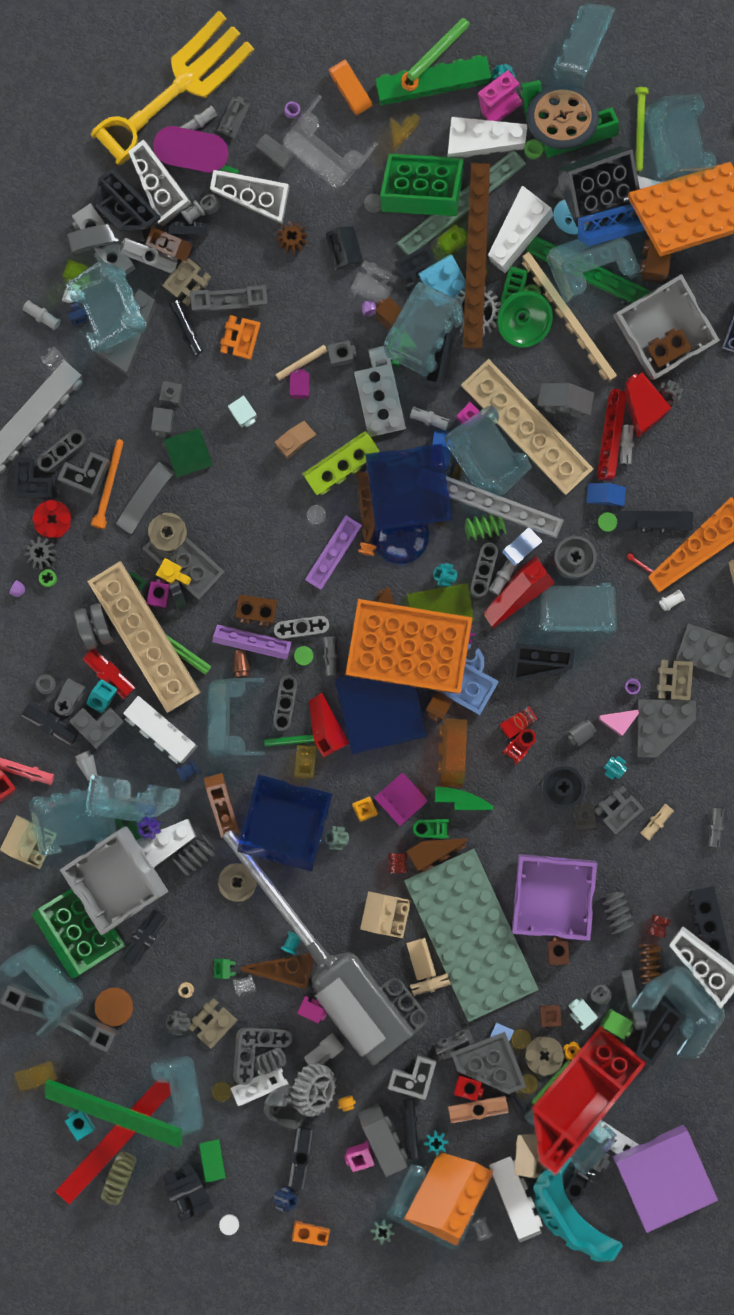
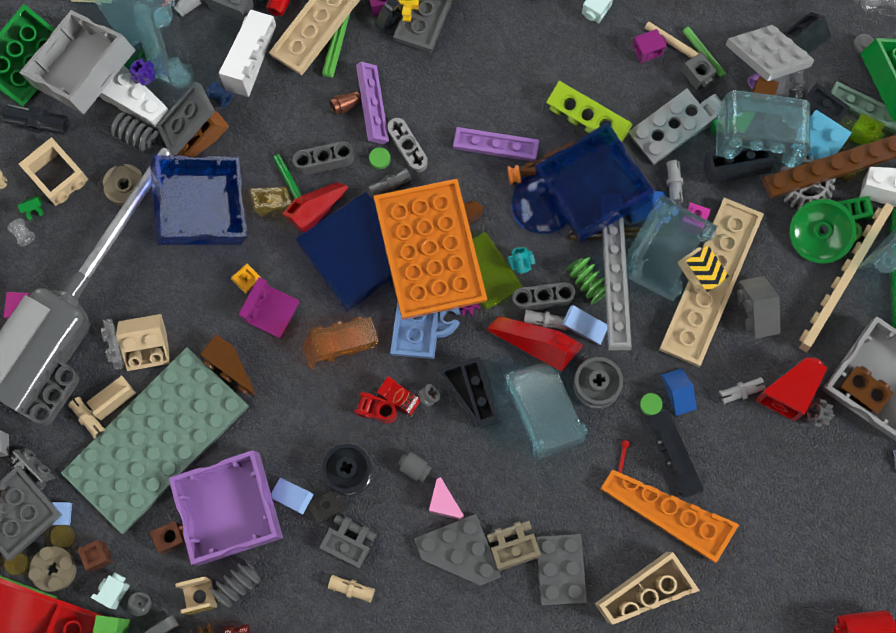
camera: 70 degrees right, 10 degrees down
(181, 943) = (40, 158): none -> tan window
(206, 806) = (185, 118): none -> dark grey plate
(219, 738) = (262, 111): clear light blue windscreen -> none
(257, 605) = (407, 94): reddish brown brick -> none
(288, 970) = (50, 267): reddish brown wing -> none
(291, 943) = (76, 261): teal bush -> none
(295, 439) = (592, 62): medium nougat slope -> none
(316, 514) = (527, 114): clear tile -> none
(323, 340) = (701, 48): none -> bright green bar
(336, 838) = (205, 261): sand green gear -> none
(353, 289) = (769, 52): none -> light grey plate
(383, 940) = (109, 336): none -> clear plate
(397, 863) = (201, 332): clear red wheel -> none
(433, 828) = (253, 355): green piece -> none
(438, 706) = (380, 306): reddish brown slope -> none
(461, 799) = (293, 370): green slope -> none
(519, 432) = (703, 269): none -> piece
(527, 692) = (428, 390): none -> dark grey bush
(565, 840) = (291, 495): none -> light blue tile
(567, 1050) = (68, 591): light orange plate -> none
(608, 443) = (744, 370): red beam -> none
(615, 767) = (391, 518): teal gear -> none
(624, 944) = (190, 587): none -> tan piece
(632, 690) = (483, 503): medium lavender hinge -> none
(671, 600) = (598, 506): white pin -> none

